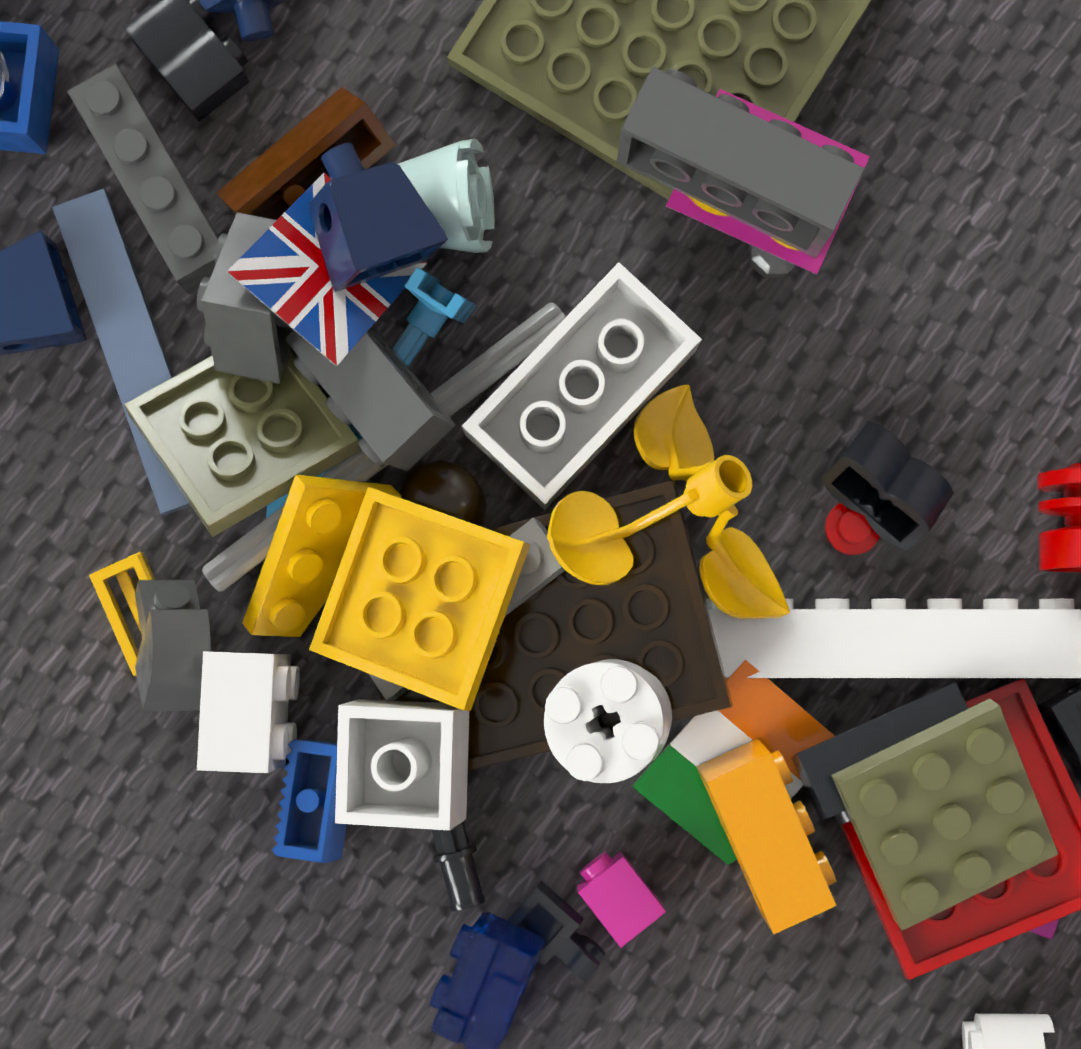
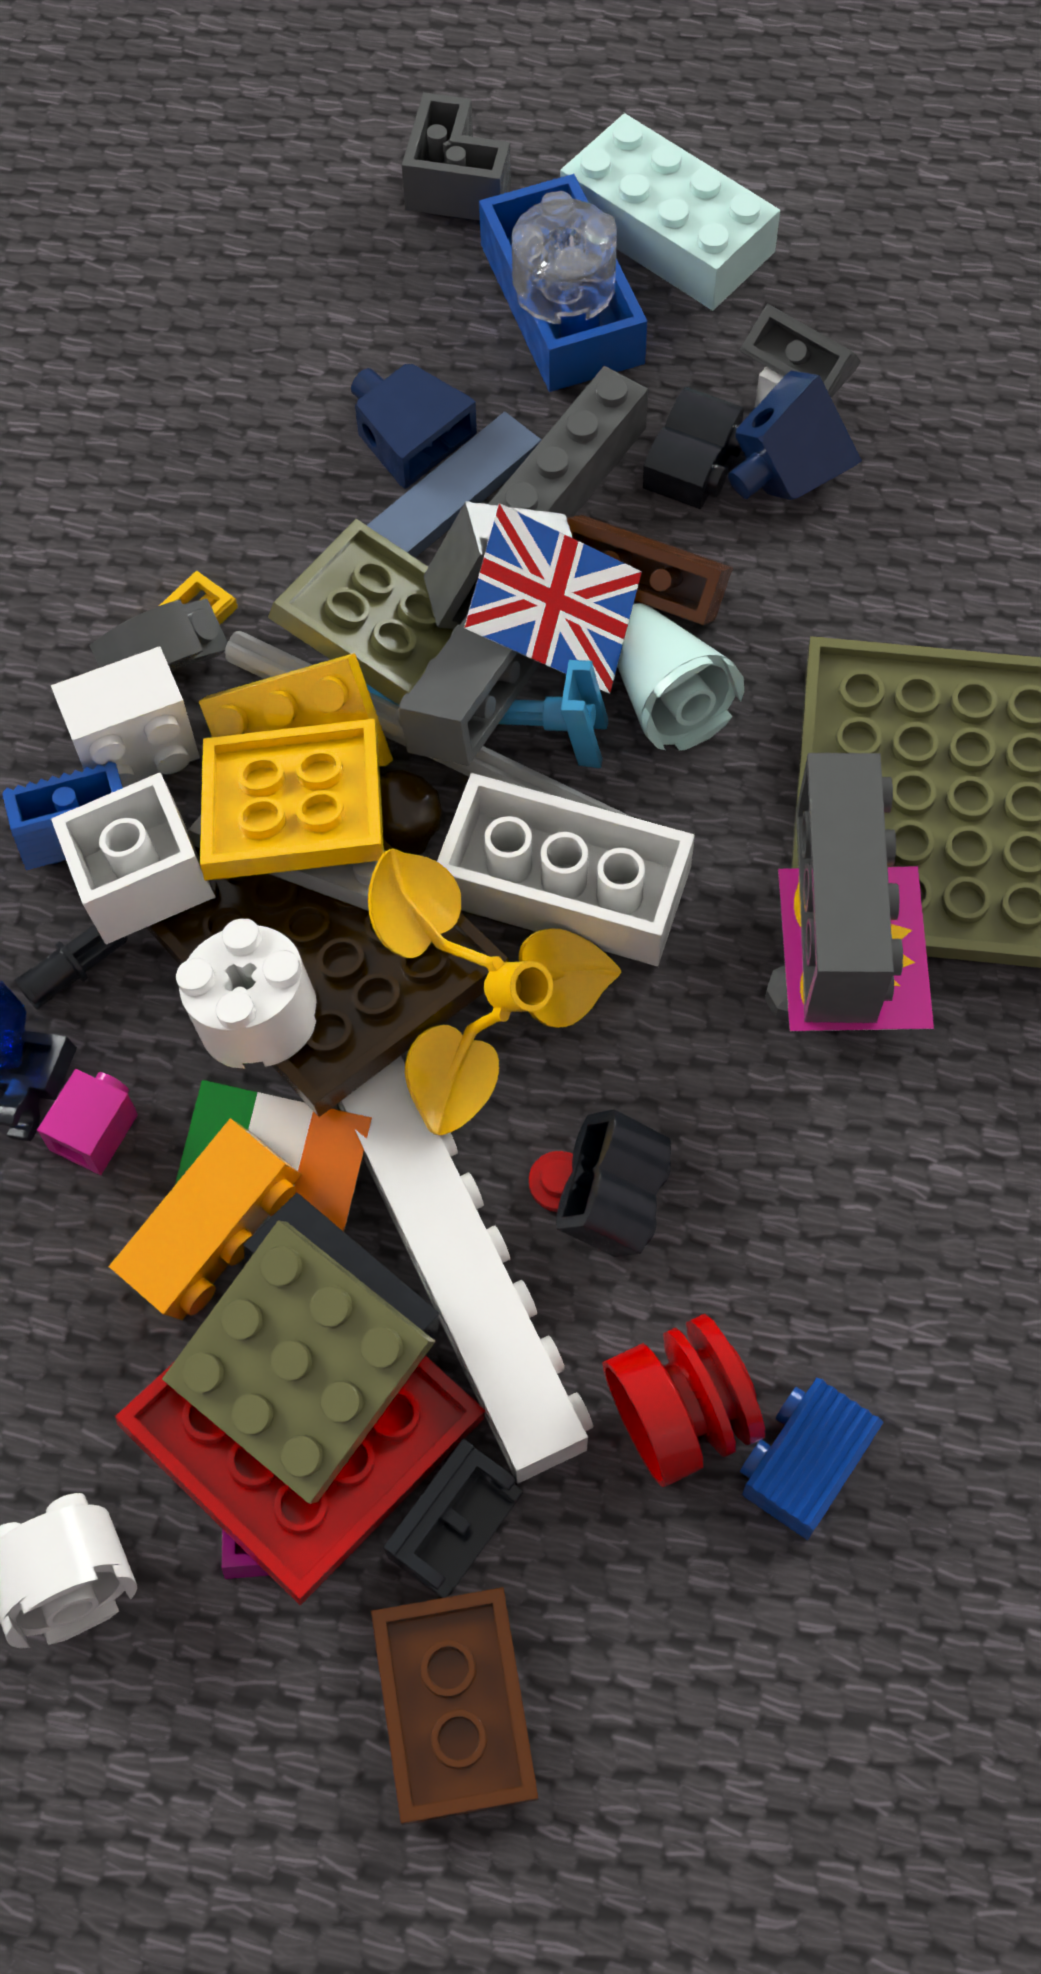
camera: 65 degrees right, 20 degrees down
(370, 220) = (612, 609): dark blue torso -> none

